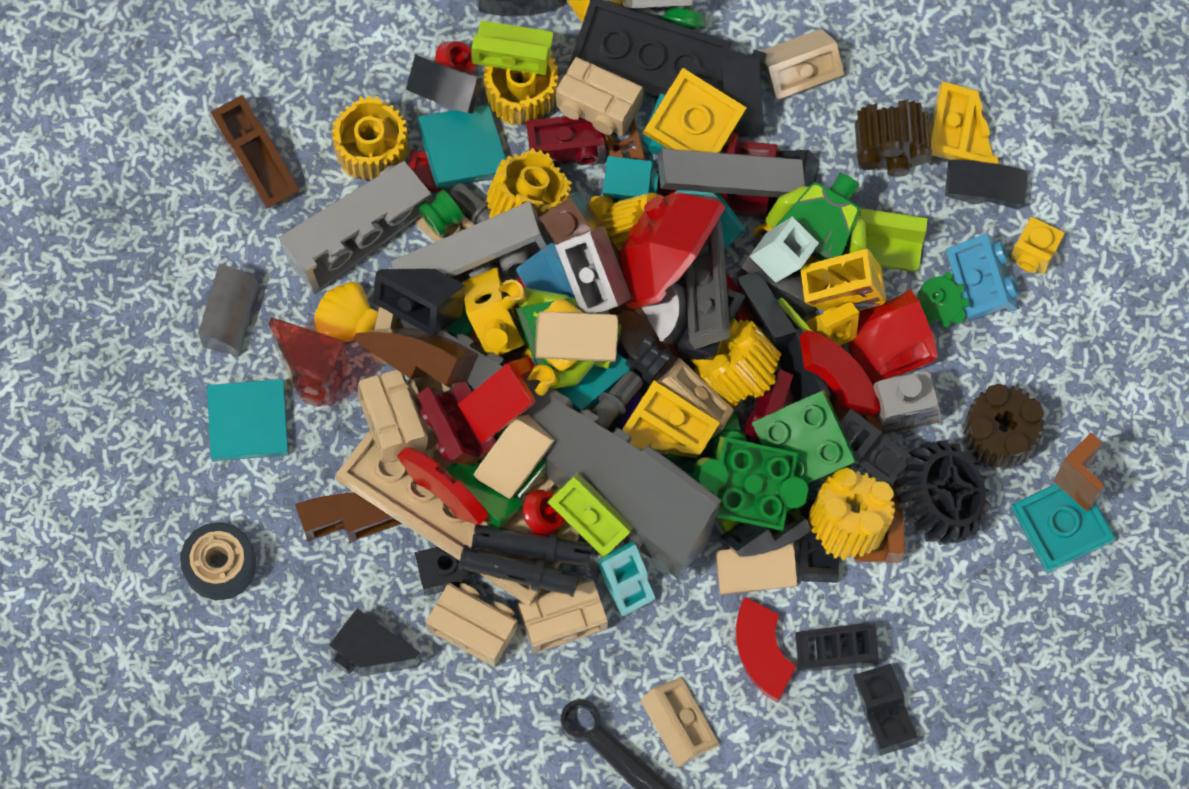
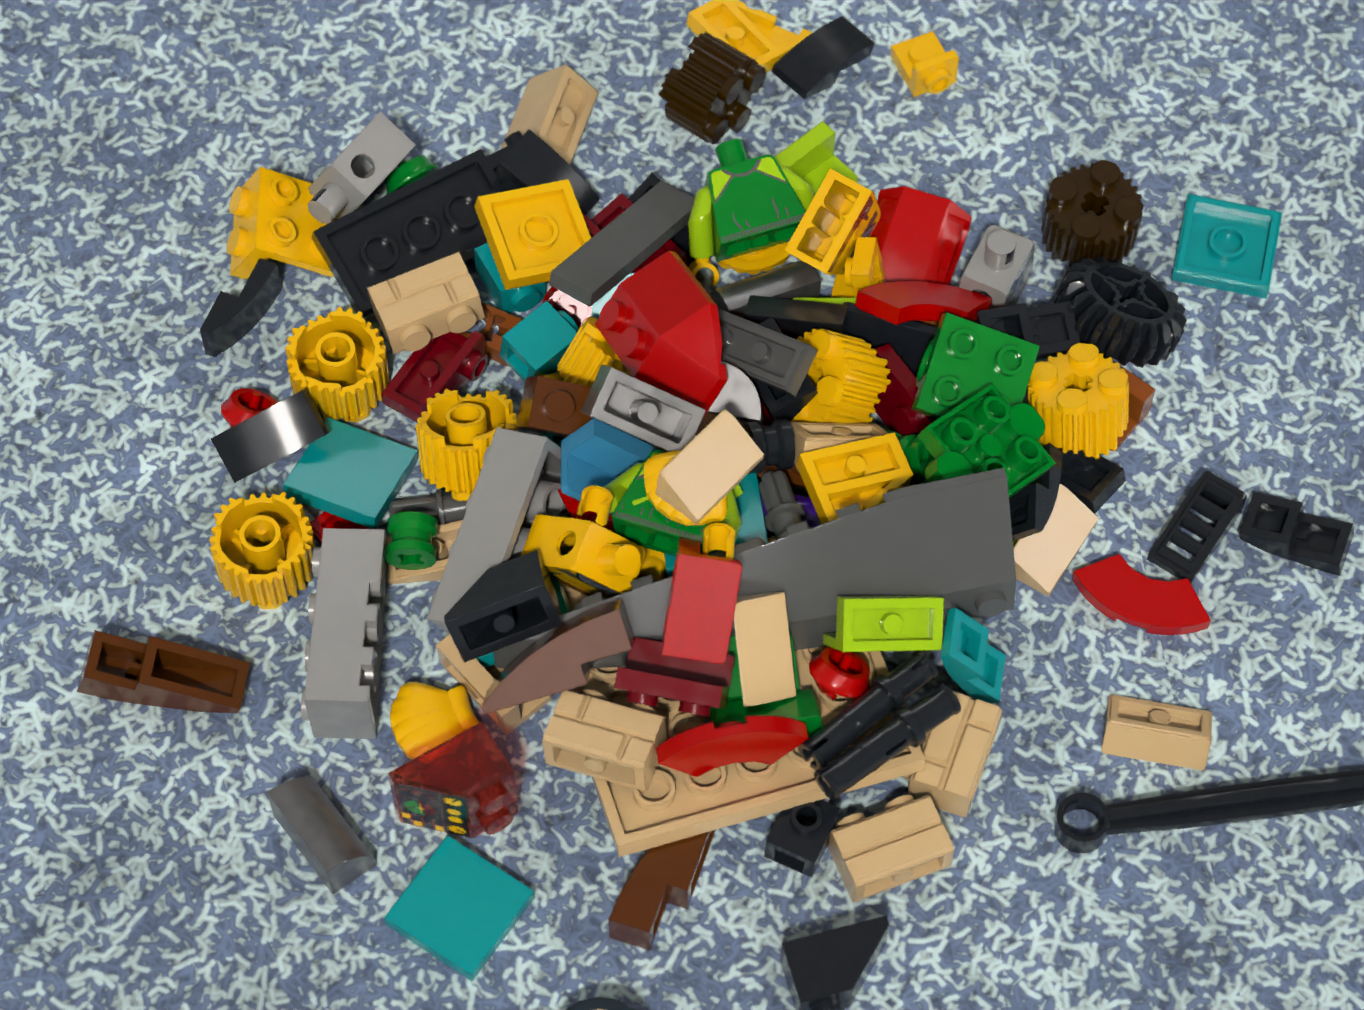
camera: 50 degrees left, 10 degrees down
(512, 47) = (304, 333): lime panel -> none
(783, 249) = (754, 250): light aqua brick -> none
(942, 300) = (912, 171): green piece -> none
(983, 273) = (917, 127): dark azure bracket -> none
(1076, 478) = (1206, 183): dark orange panel -> none

